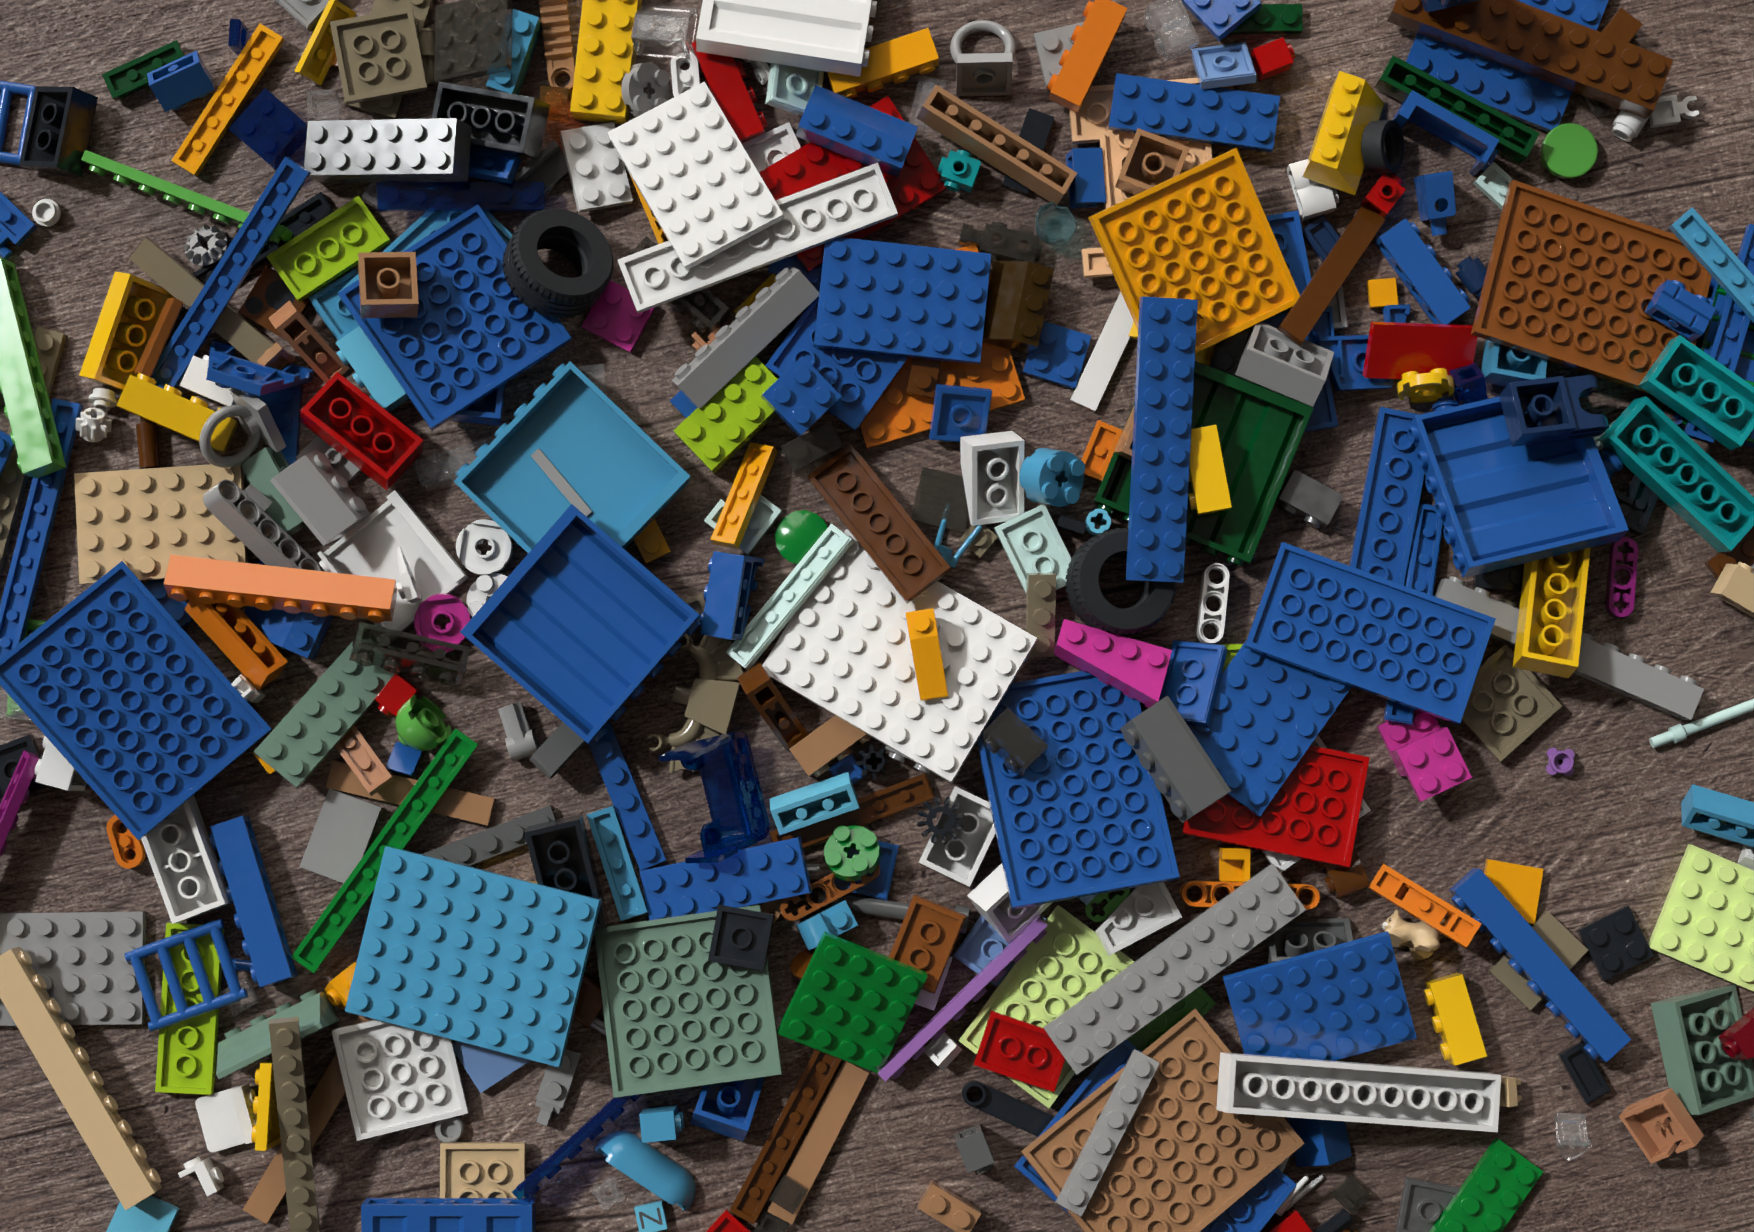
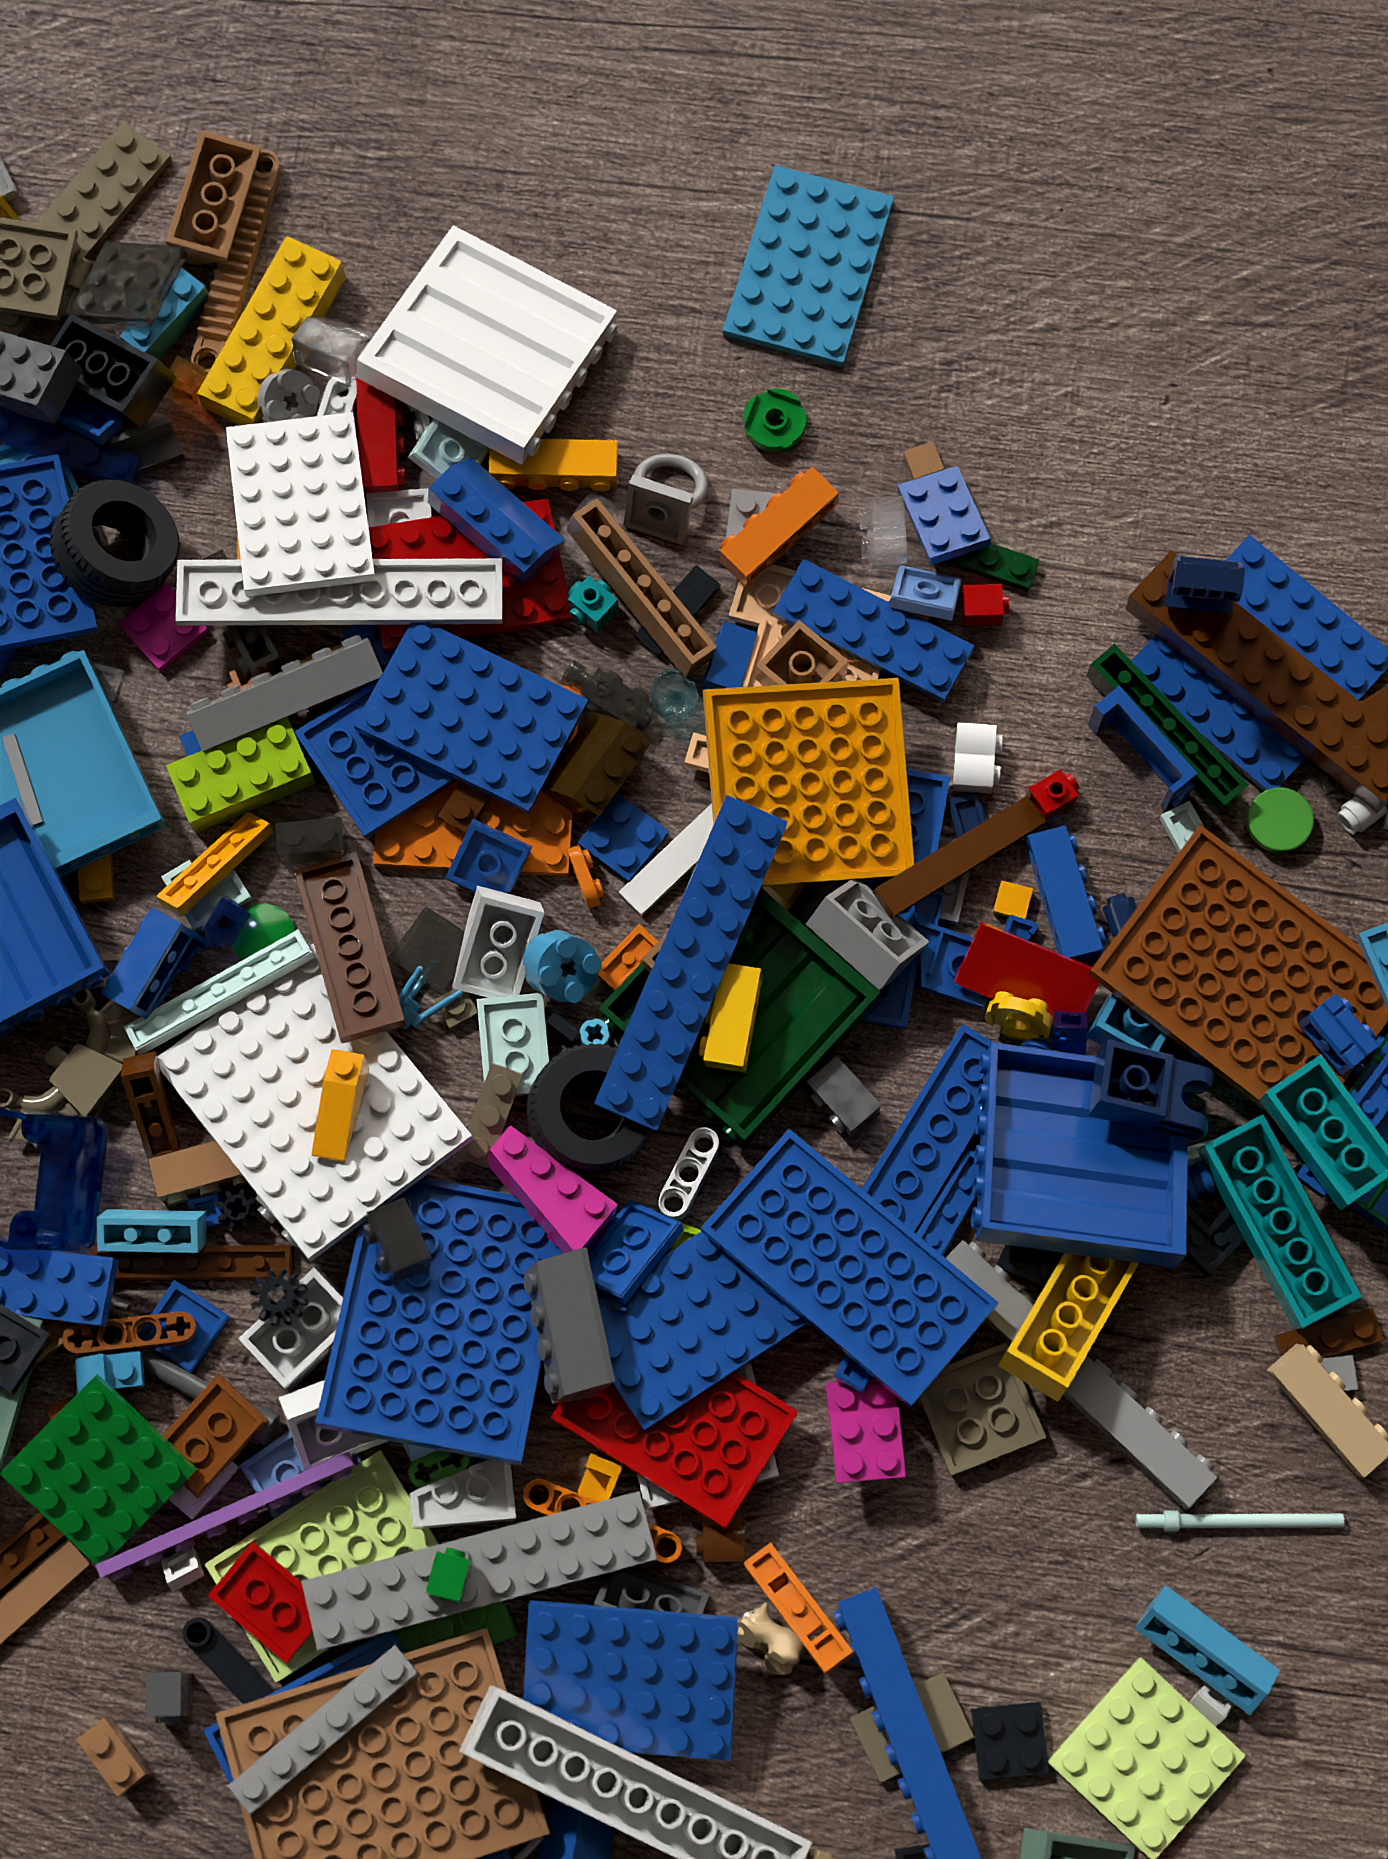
camera: 20 degrees right, 10 degrees down
(595, 168) = (201, 465): white plate -> none
(779, 547) = (225, 908): none -> clear blue brick
(800, 396) = (315, 775): blue brick -> none
(859, 865) = (166, 1285): plate -> none
(1047, 405) = (581, 863): none -> orange plate
(1158, 983) = (449, 1575): none -> green brick
(1337, 149) = (1030, 711): yellow slope -> none
(1382, 146) = (1054, 737): black tyre -> none
(1432, 189) = (1110, 805): blue torso -> none
(1454, 1019) = (785, 1758): yellow brick -> none
(1518, 885) = (918, 1630): light orange tile -> none
(1567, 758) = (1031, 1500): medium lavender plate -> none
(1615, 556) = (1168, 1343): magenta beam -> none

